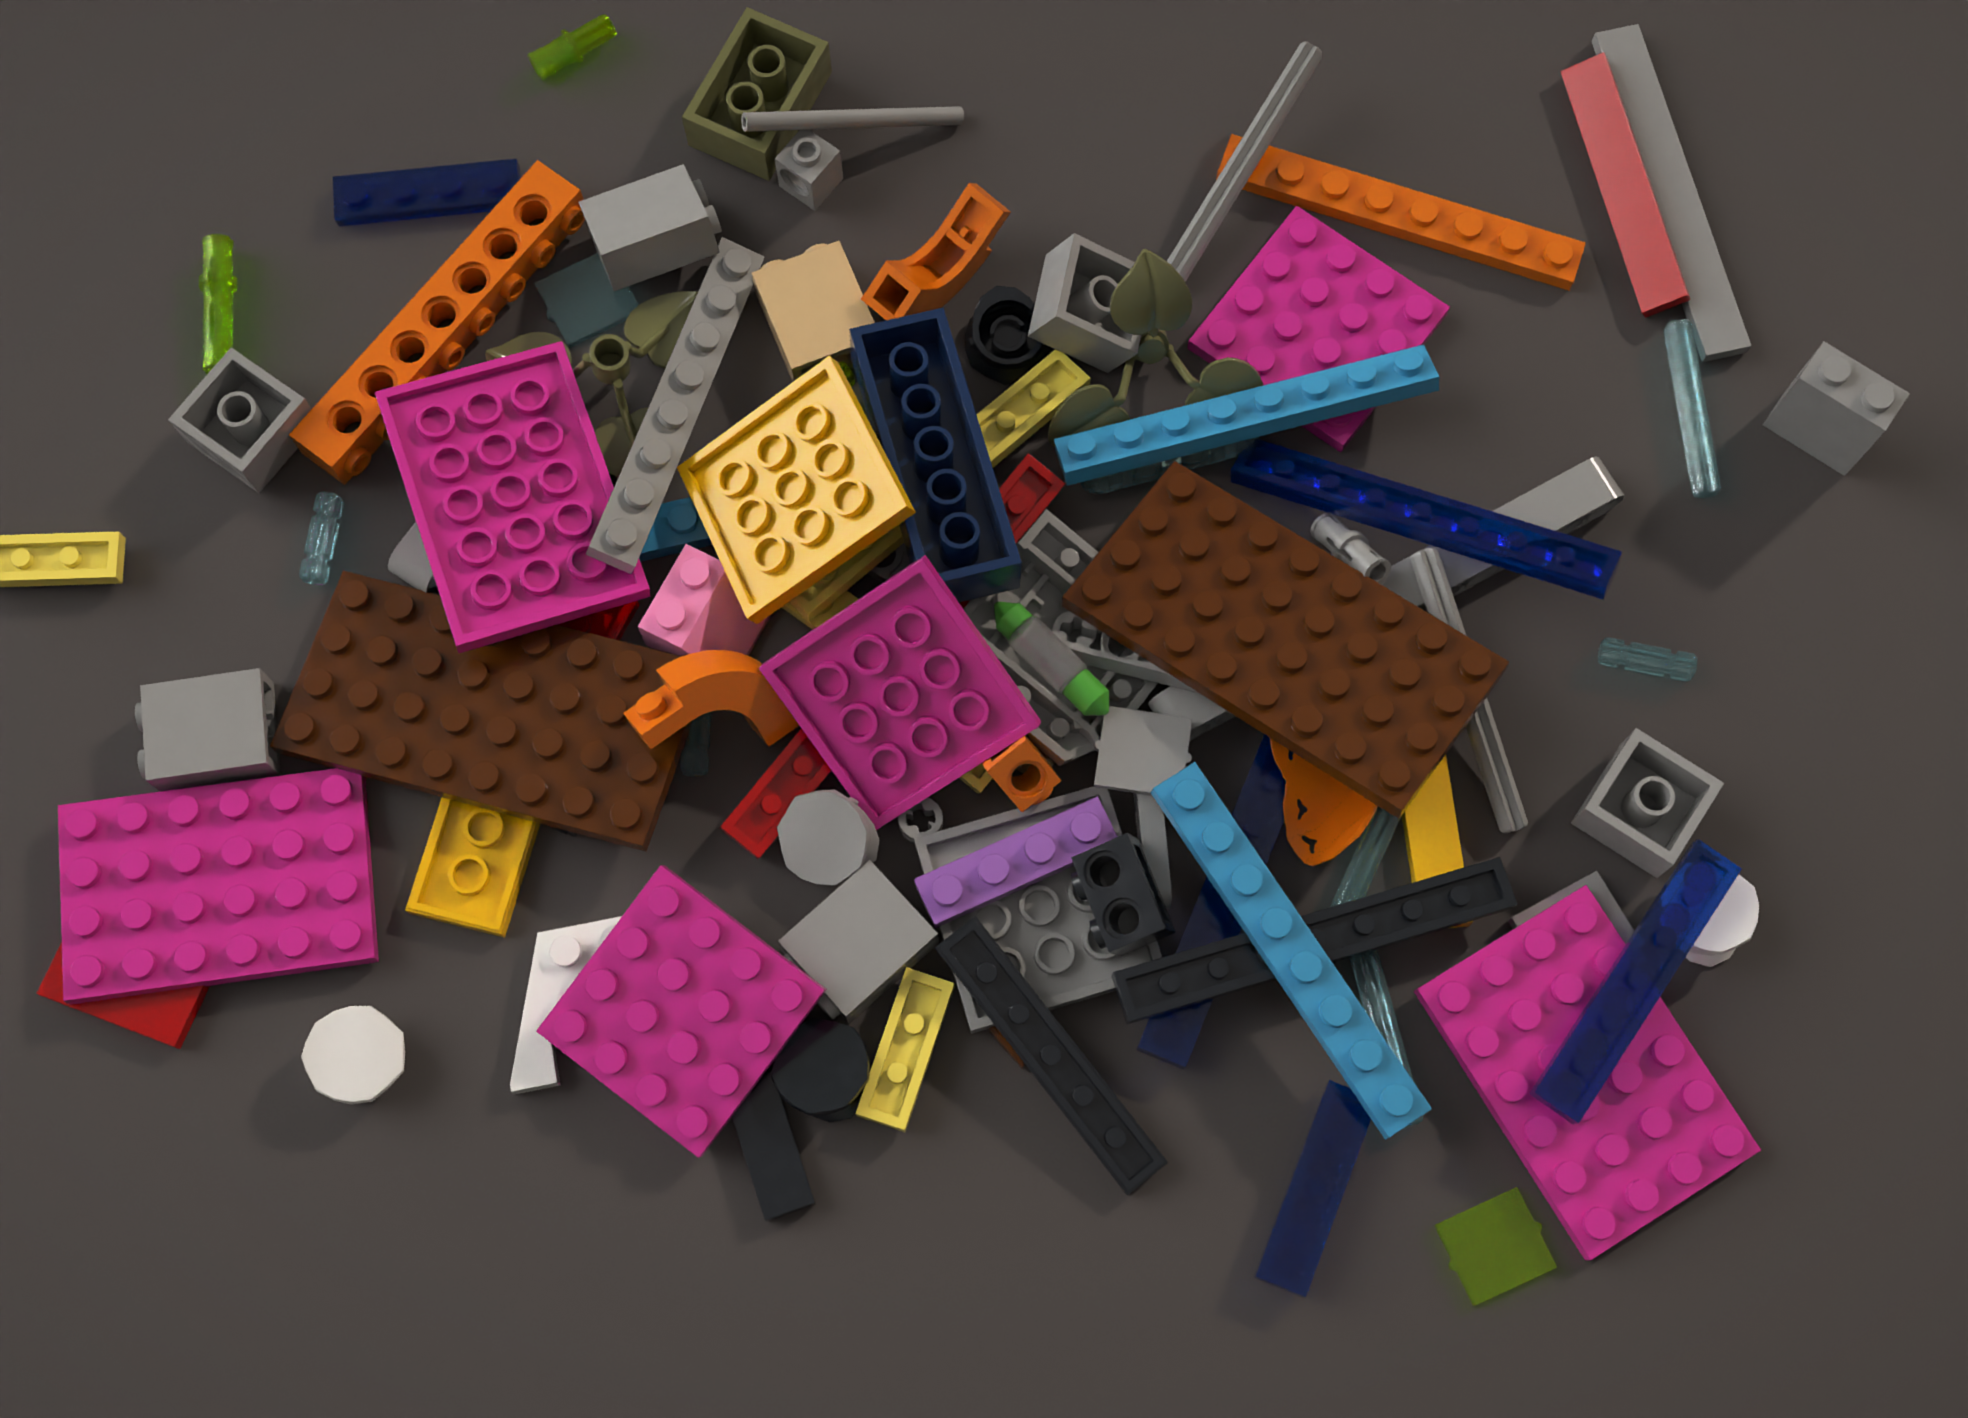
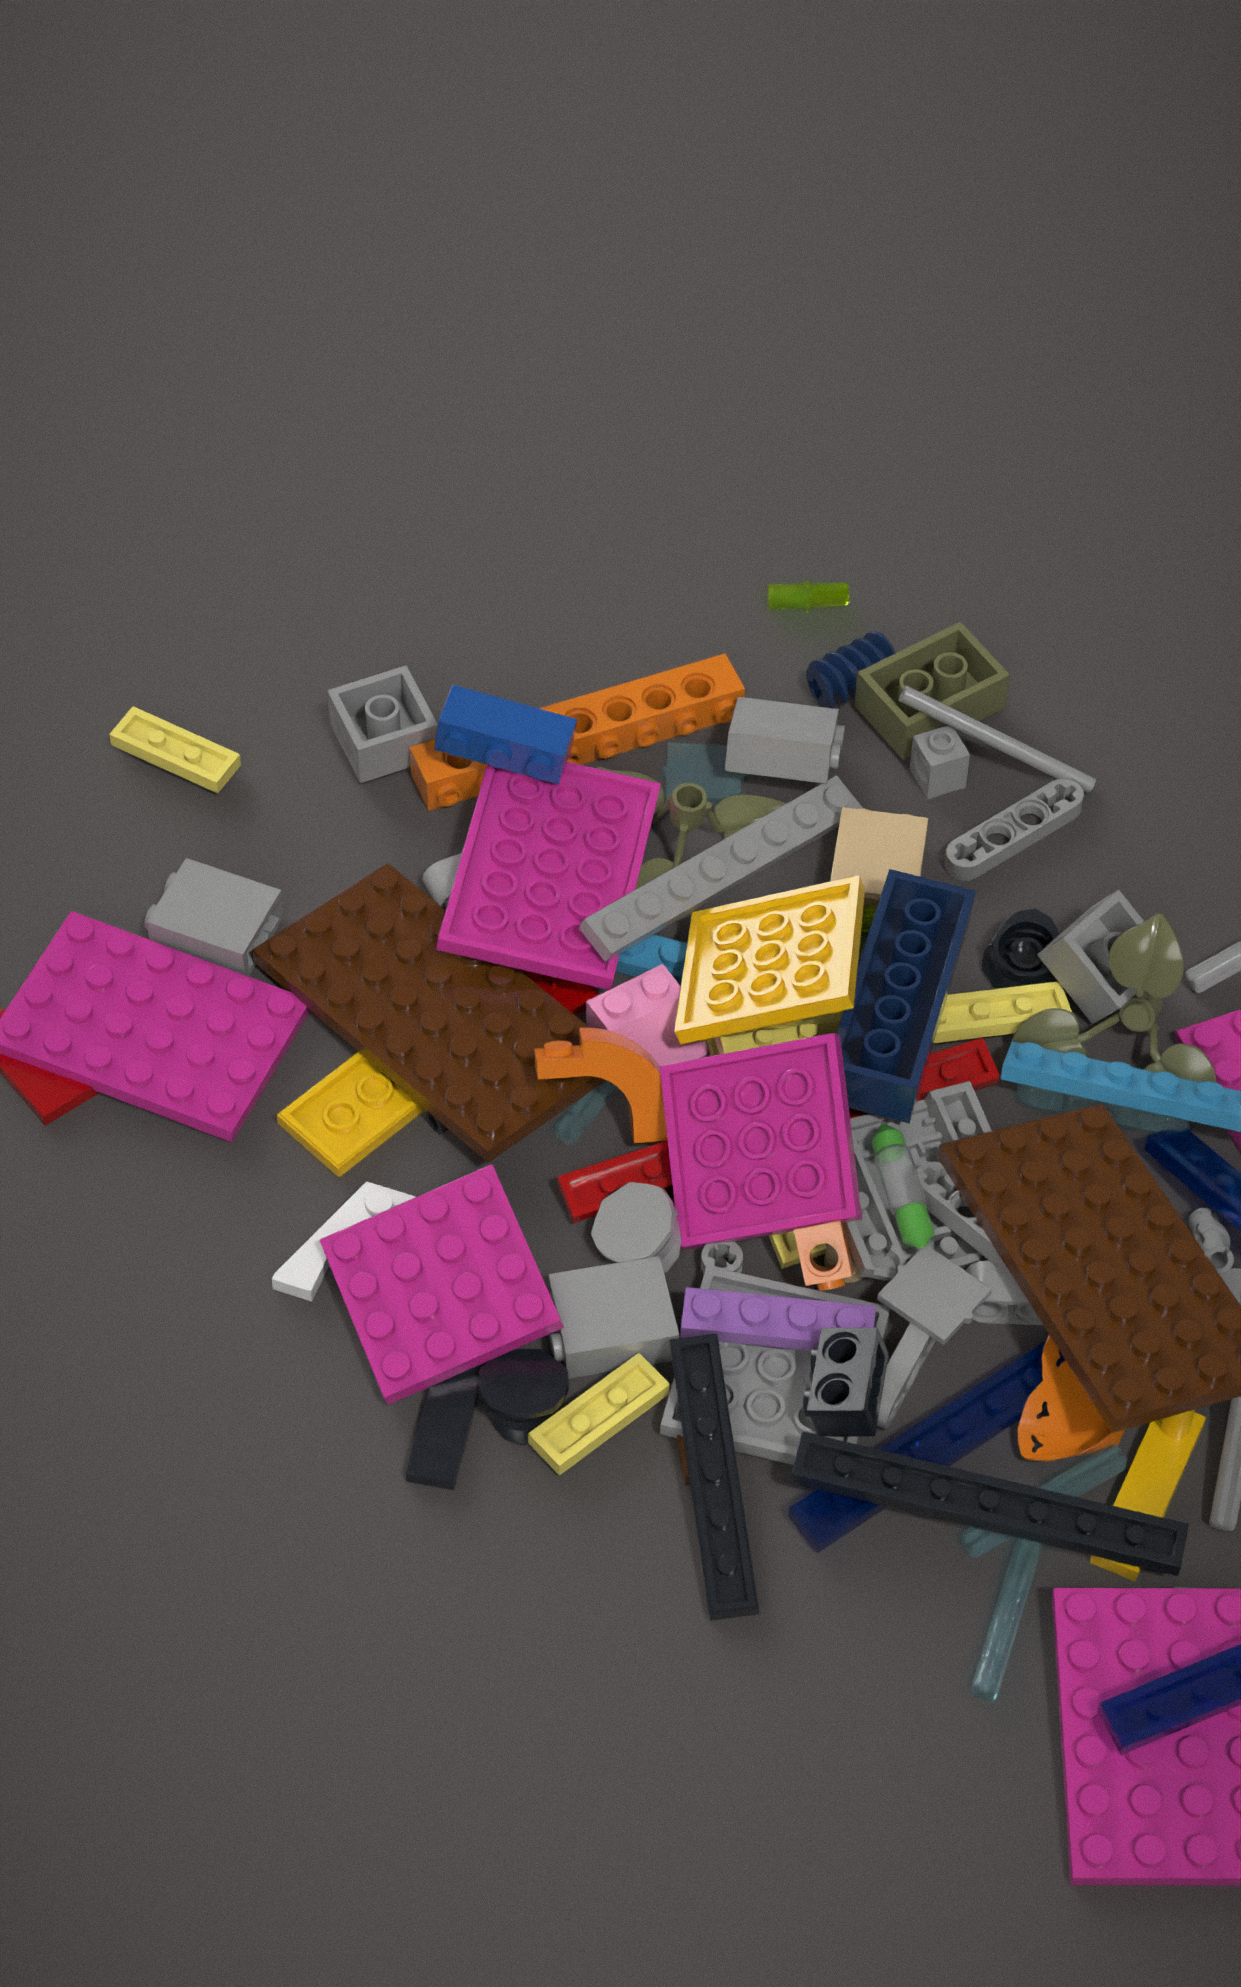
camera: 30 degrees right, 20 degrees down
(218, 289) = (424, 630): clear neon green pin -> none
(321, 538) = (386, 835): clear light blue axle -> none
(354, 1054) = (171, 1188): white hat -> none
(383, 379) = (505, 734): none -> blue brick
(422, 192) = (619, 639): clear blue plate -> none
(661, 111) = (835, 674): none -> dark blue piece
(919, 202) = (1009, 824): none -> light grey beam
(943, 263) = (1009, 877): orange arch -> none
(1291, 951) = (960, 1495): dark azure plate -> none
(1314, 1191) = (870, 1695): clear blue plate -> none
(1495, 1246) = (997, 1828): clear neon green piece -> none

